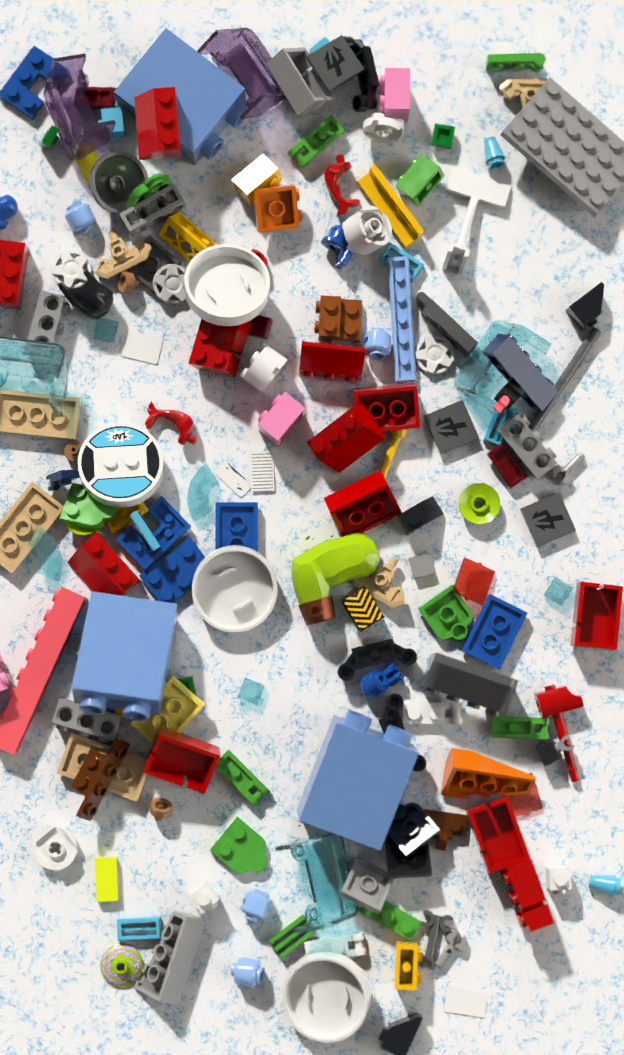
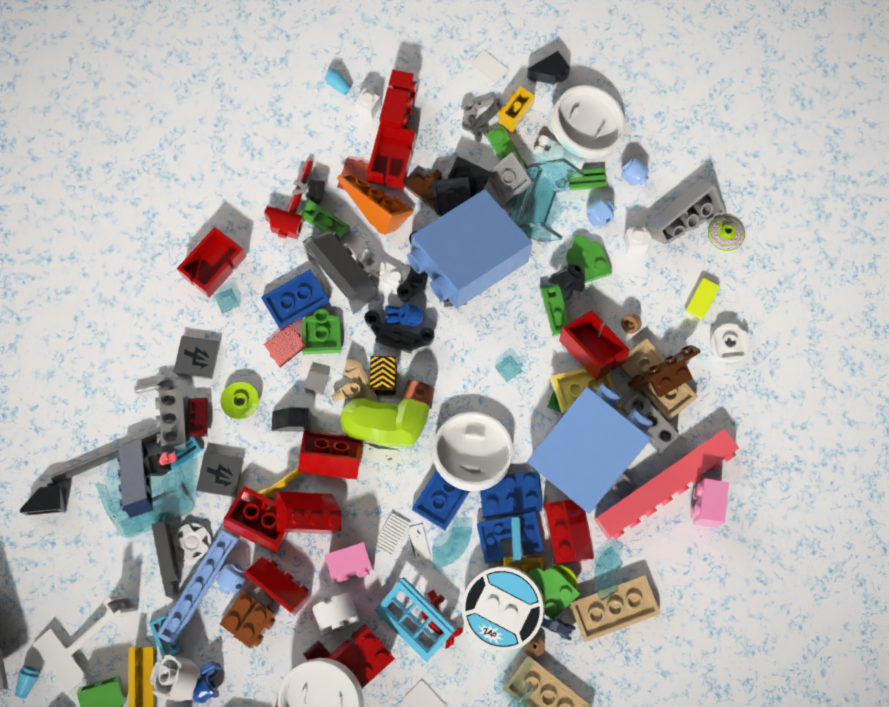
camera: 140 degrees left, 10 degrees down
(157, 927) = (699, 258): medium azure tile -> none
(190, 422) = (432, 613): none -> medium azure piece
(245, 813) = (569, 279): none -> black brick

